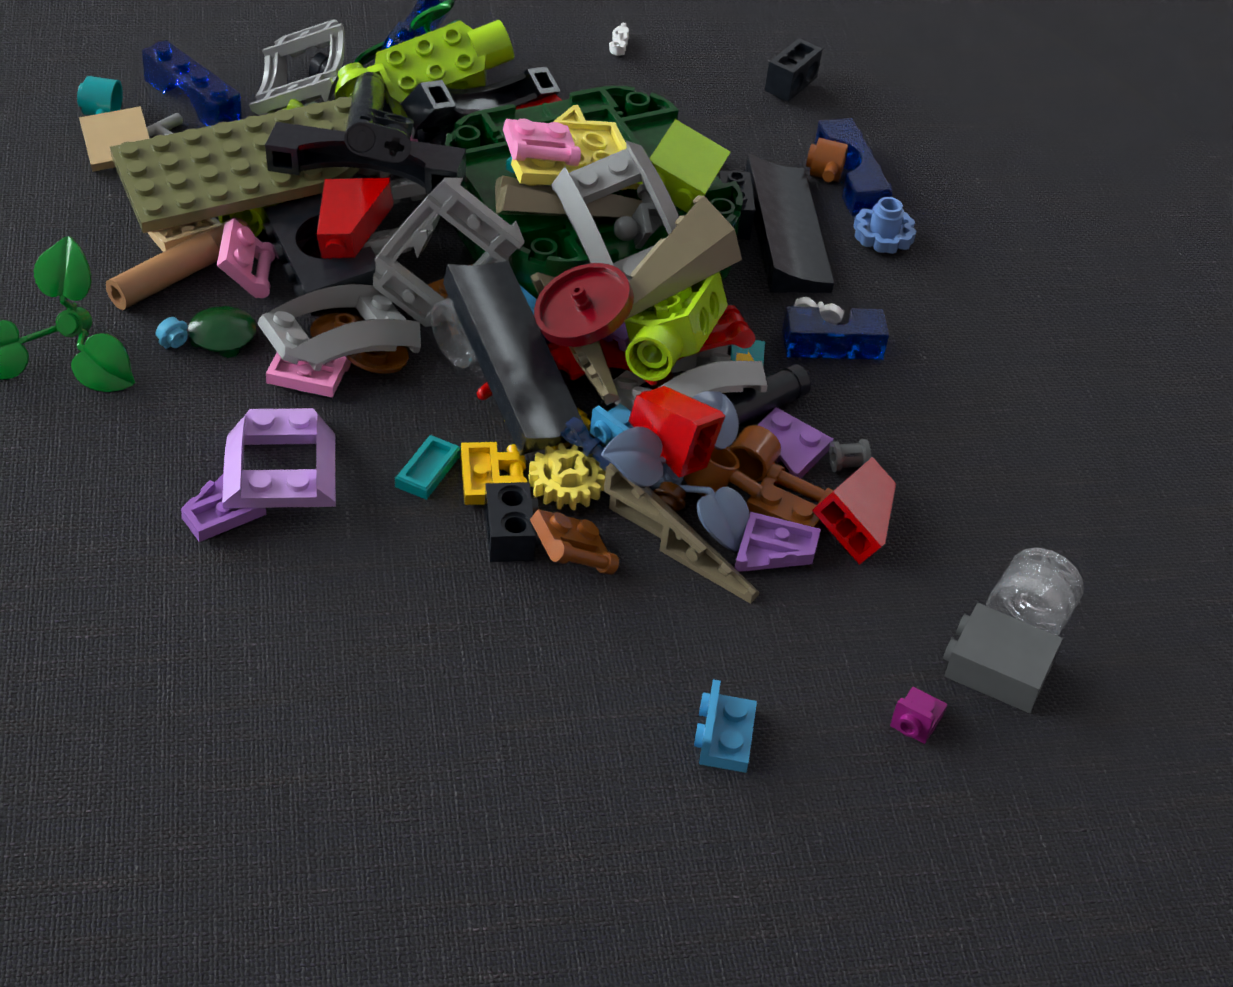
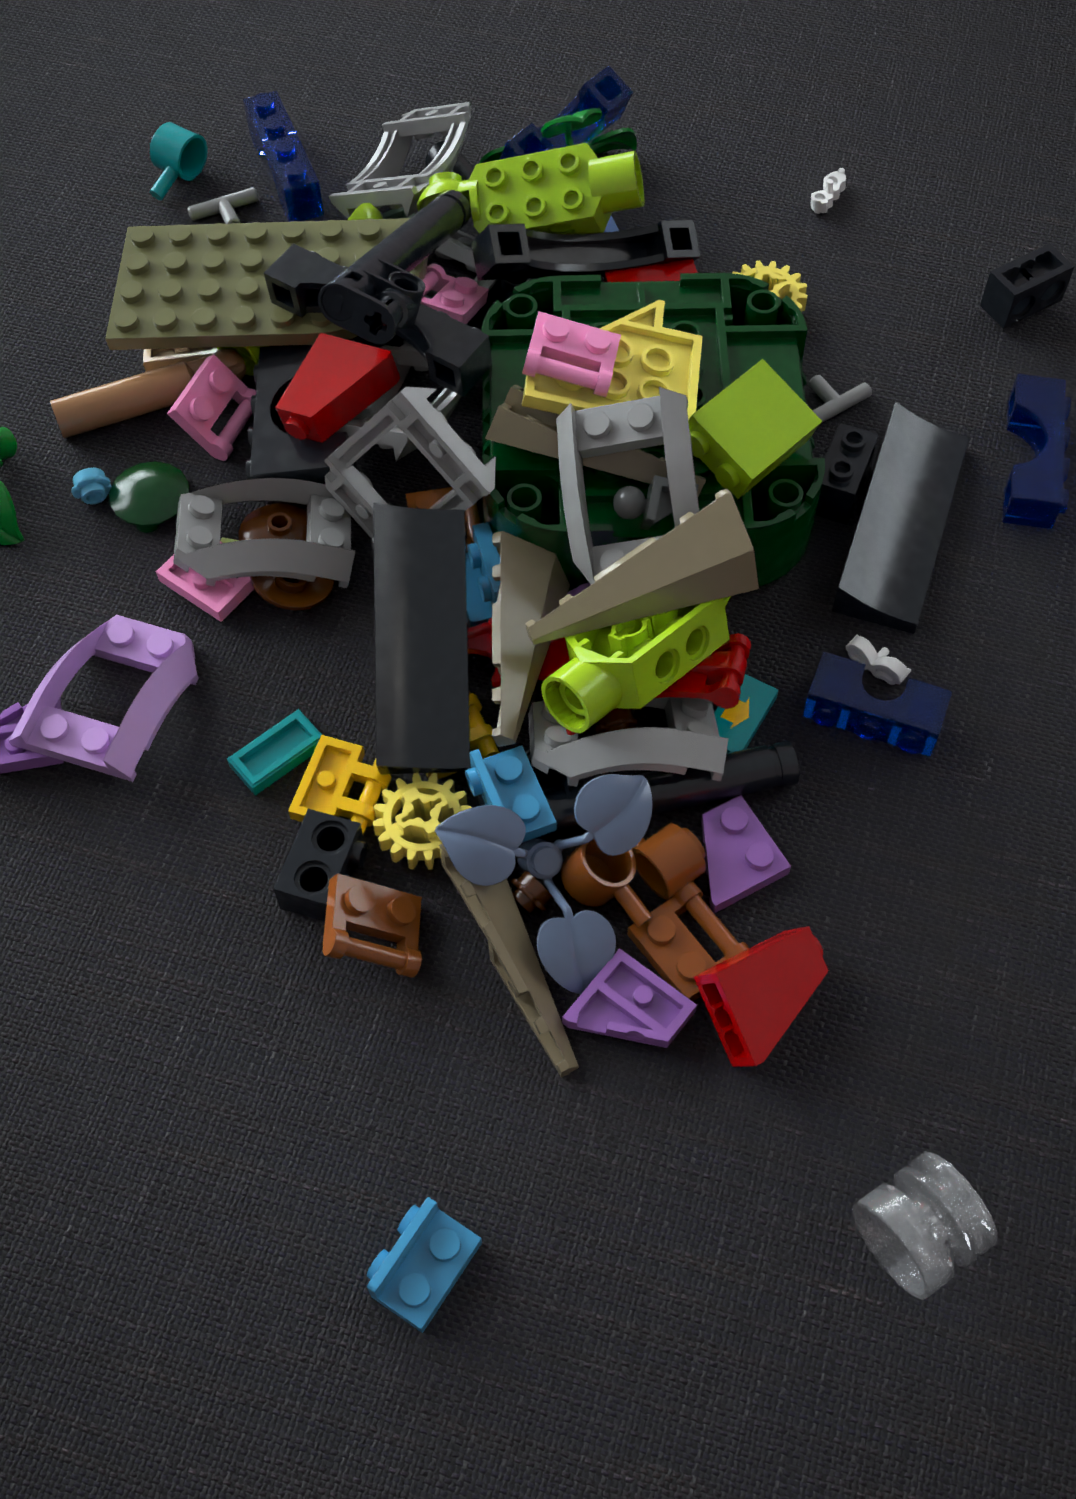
camera: 30 degrees right, 15 degrees up
(109, 130) = (168, 199): tan tile -> none
(577, 434) = (450, 780): dark blue piece -> none
(584, 304) = (521, 602): dark red piece -> none
(683, 425) = (553, 814): red slope -> none
(827, 159) = (1003, 435): dark orange piece -> none
(838, 451) = (799, 899): dark grey bush -> none
(885, 226) = (1031, 558): medium blue plant -> none
(918, 714) = (682, 1336): magenta bracket -> none
(1001, 656) = (839, 1291): dark grey brick -> none

